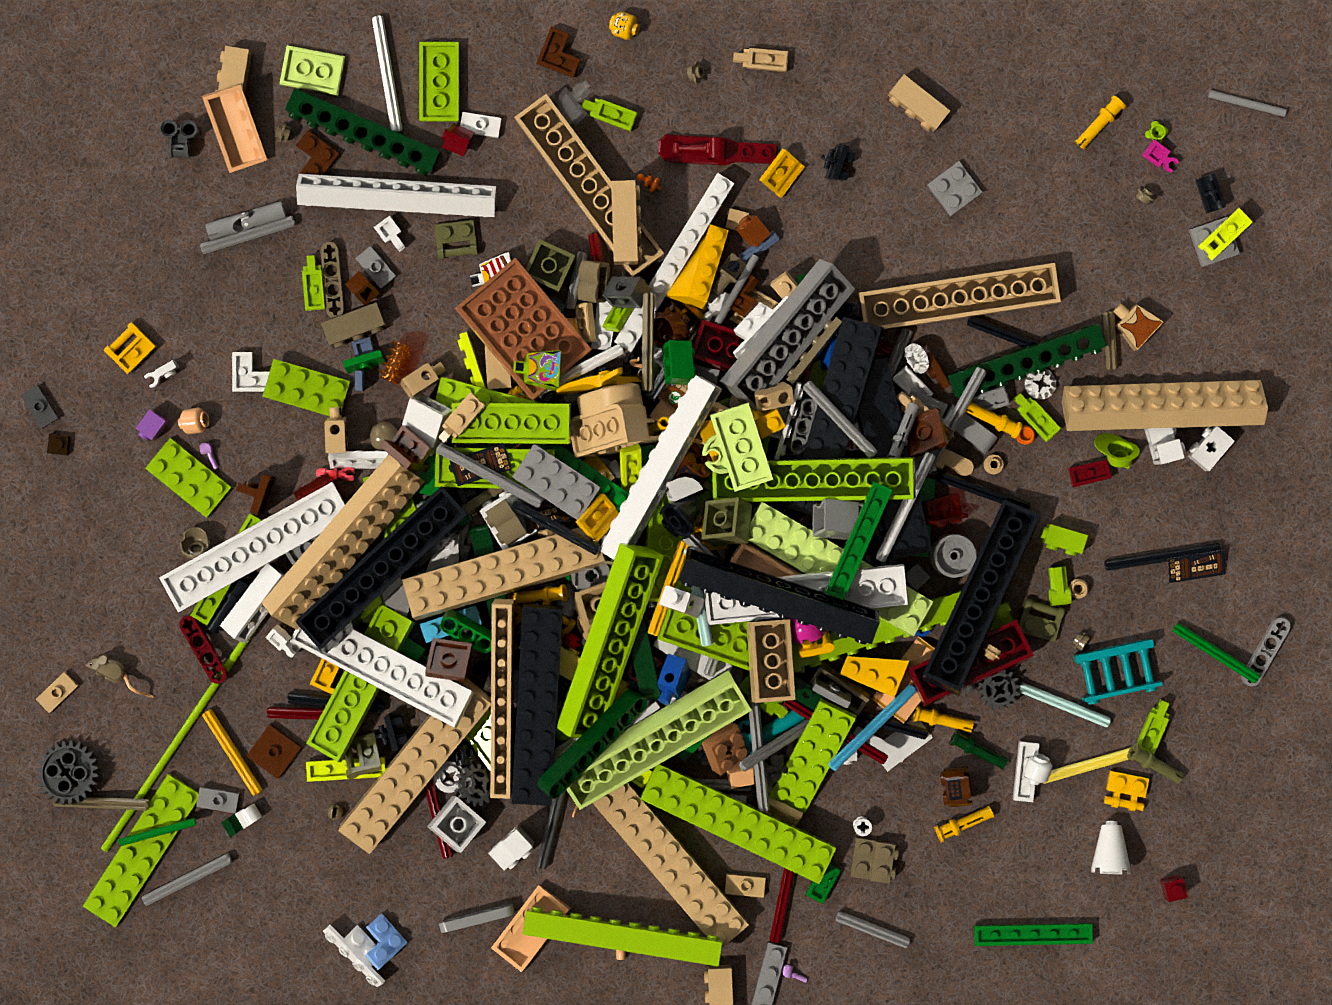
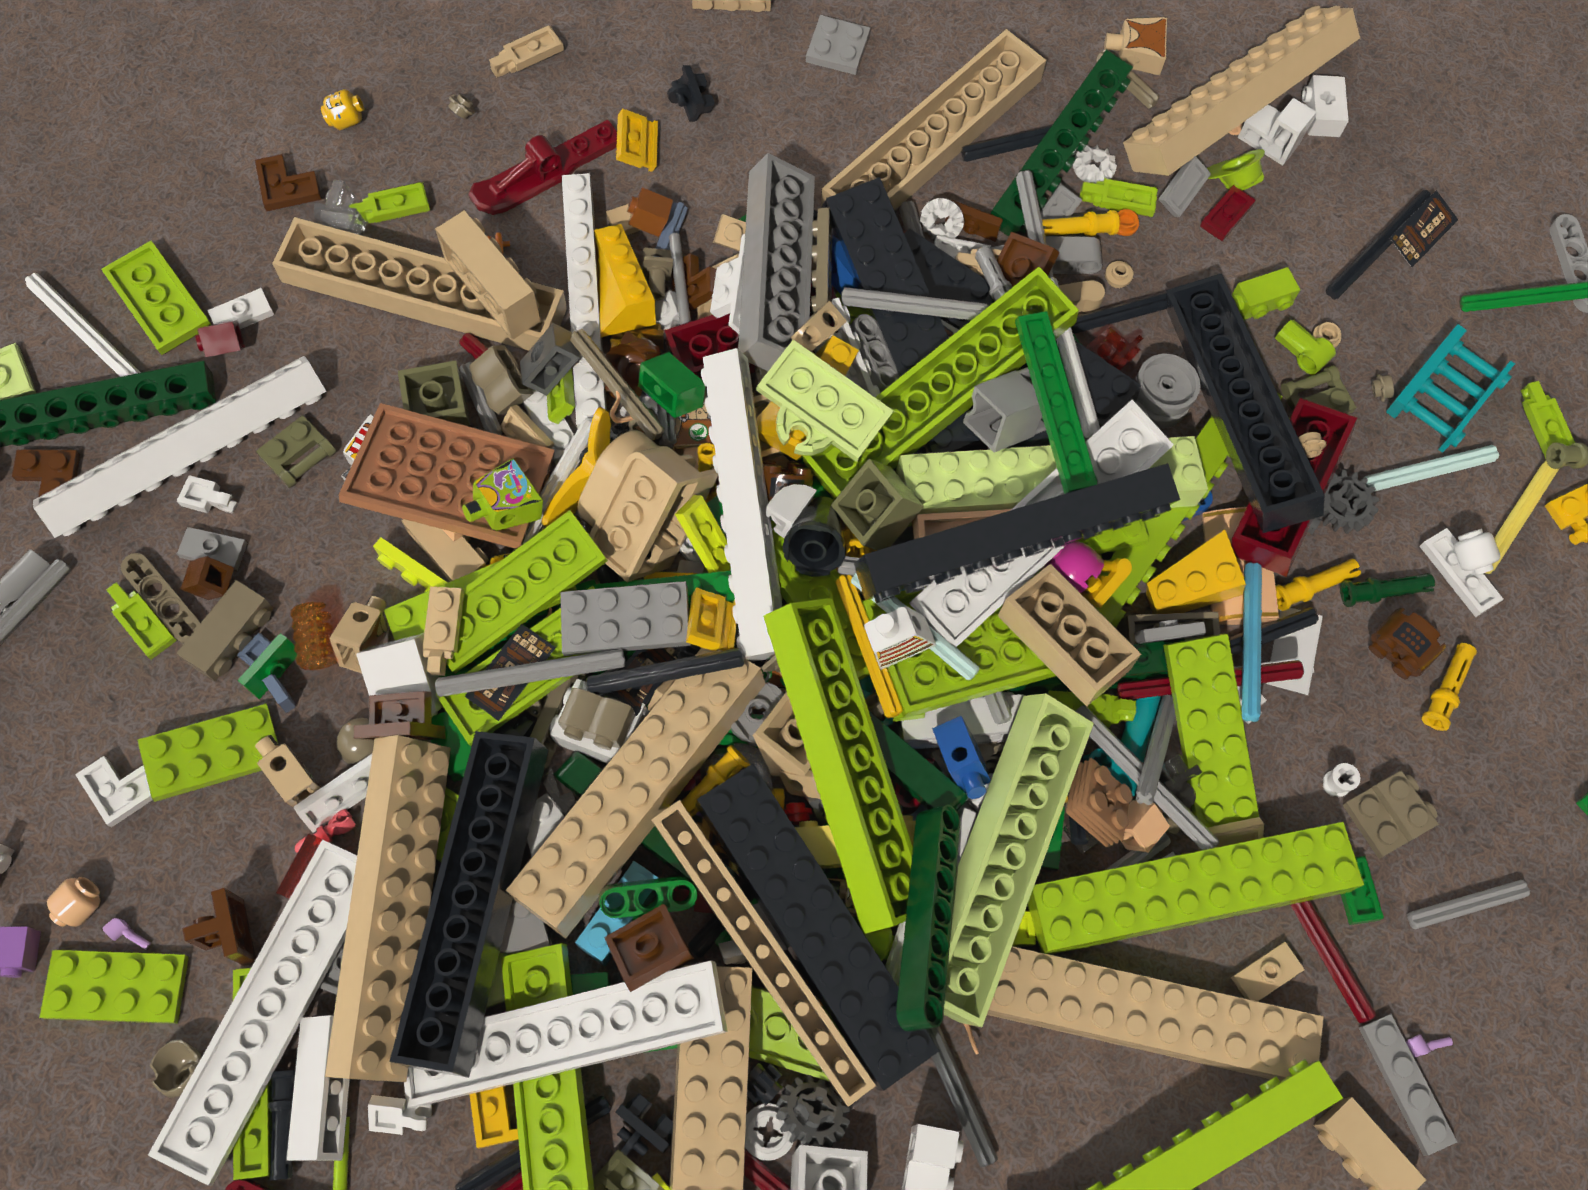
camera: 45 degrees left, 20 degrees down
(1076, 440) = (1184, 187): none -> light grey tile

